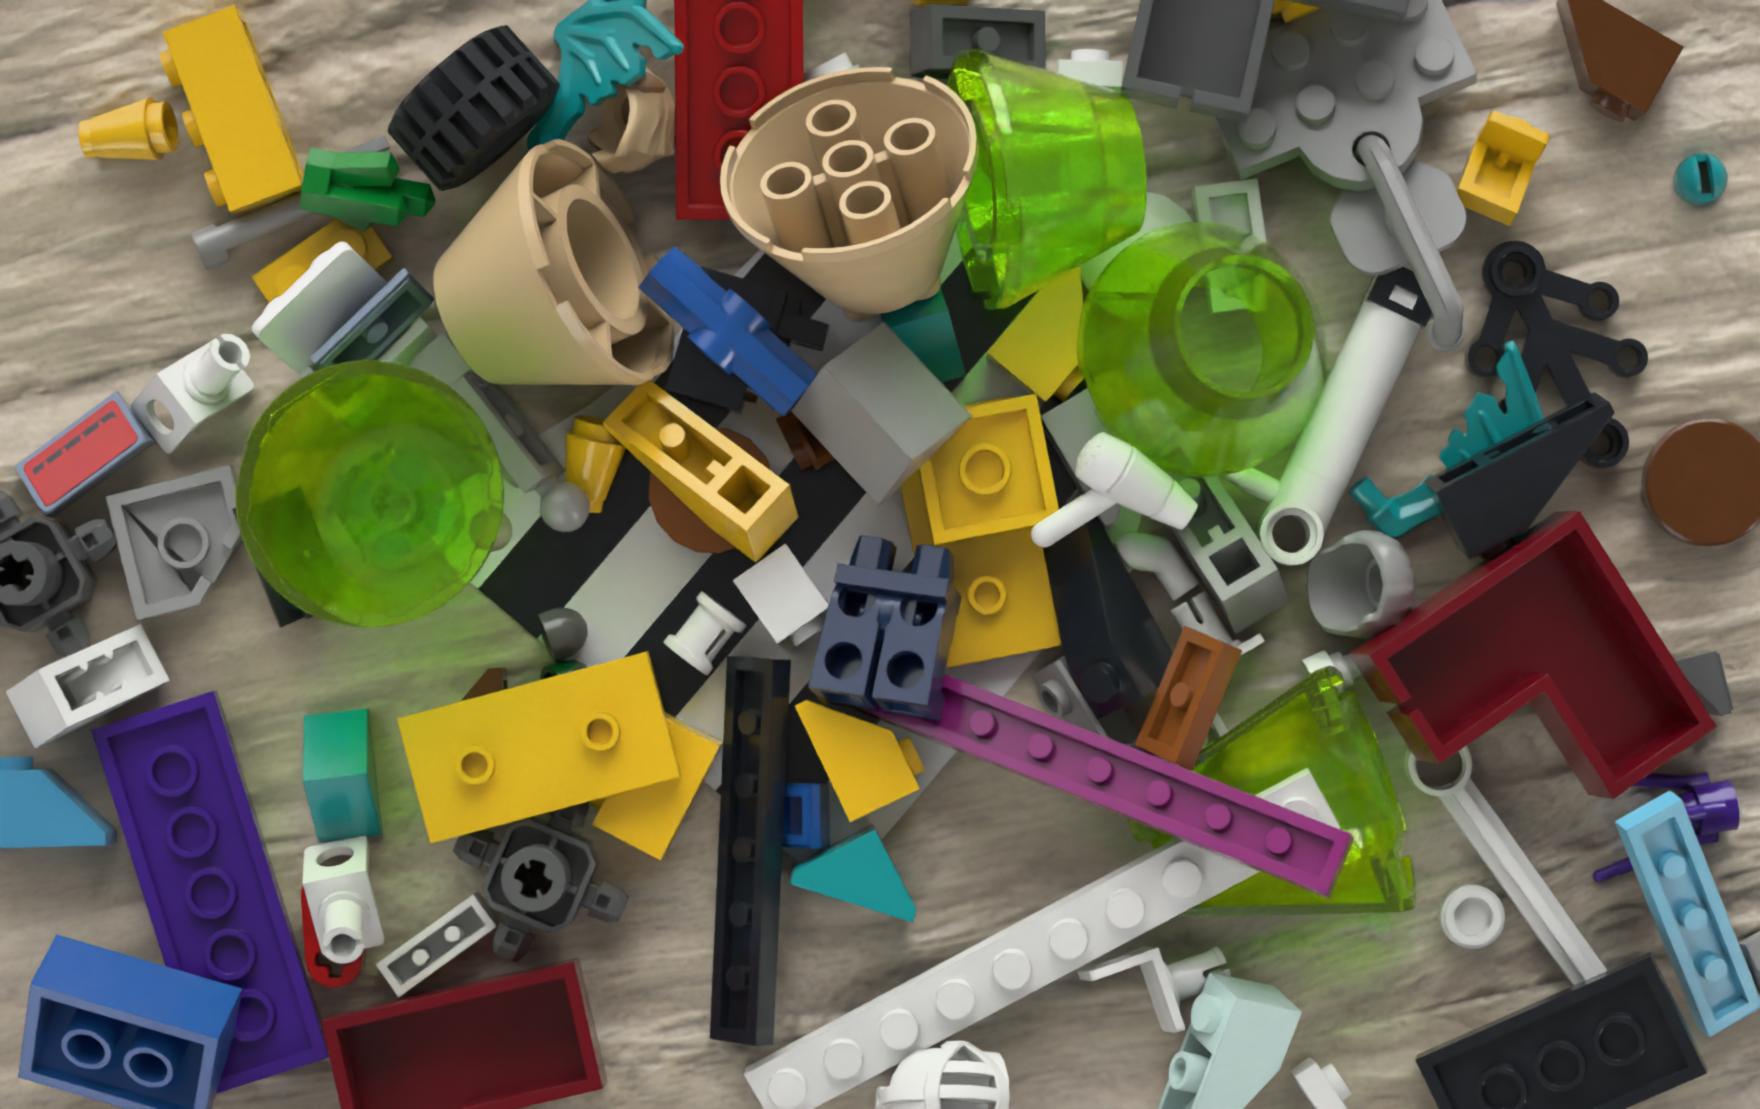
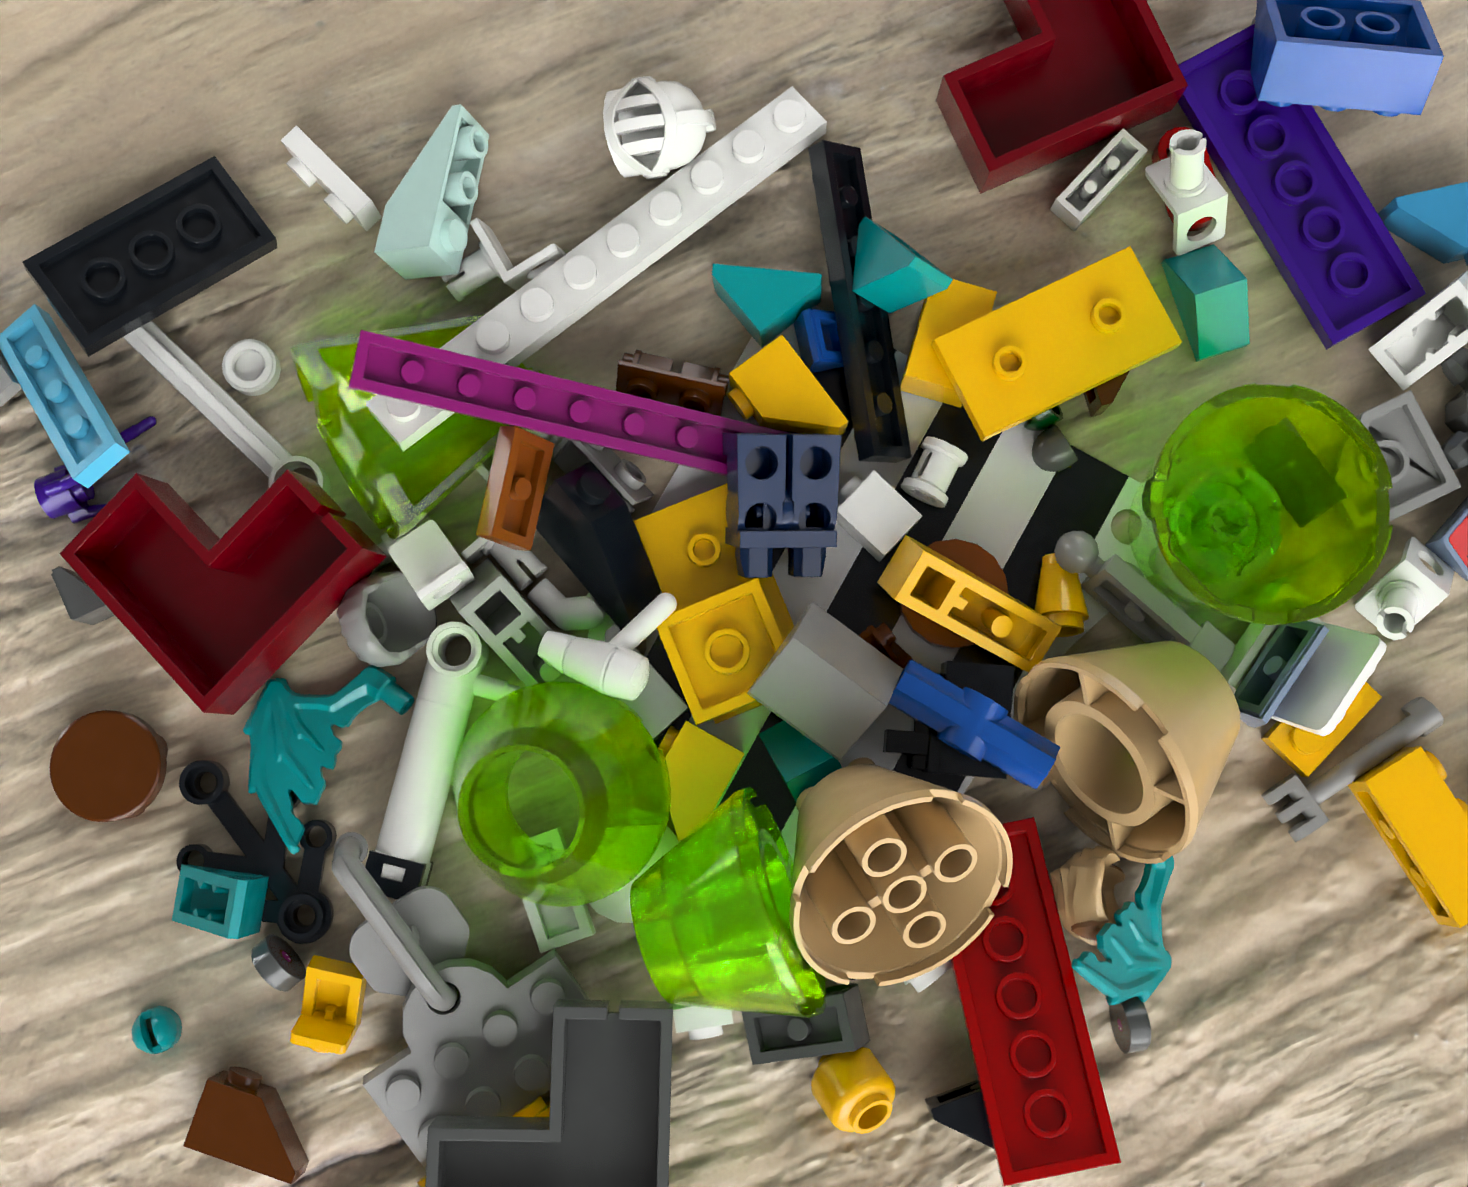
camera: 170 degrees right, 5 degrees down
(361, 189) = (1315, 788): green rock -> none
(473, 107) = (1235, 878): black tyre -> none
(569, 864) = (1026, 242): dark grey piece -> none
(704, 880) = (892, 271): none -> teal slope
(1013, 804) = (651, 378): none -> reddish brown hinge
(1300, 633) = (430, 564): none -> white bracket
(1510, 482) = (271, 731): black slope -> none
(1551, 224) = (278, 963): none -> dark grey tile
(1604, 305) = (220, 901): none -> teal slope

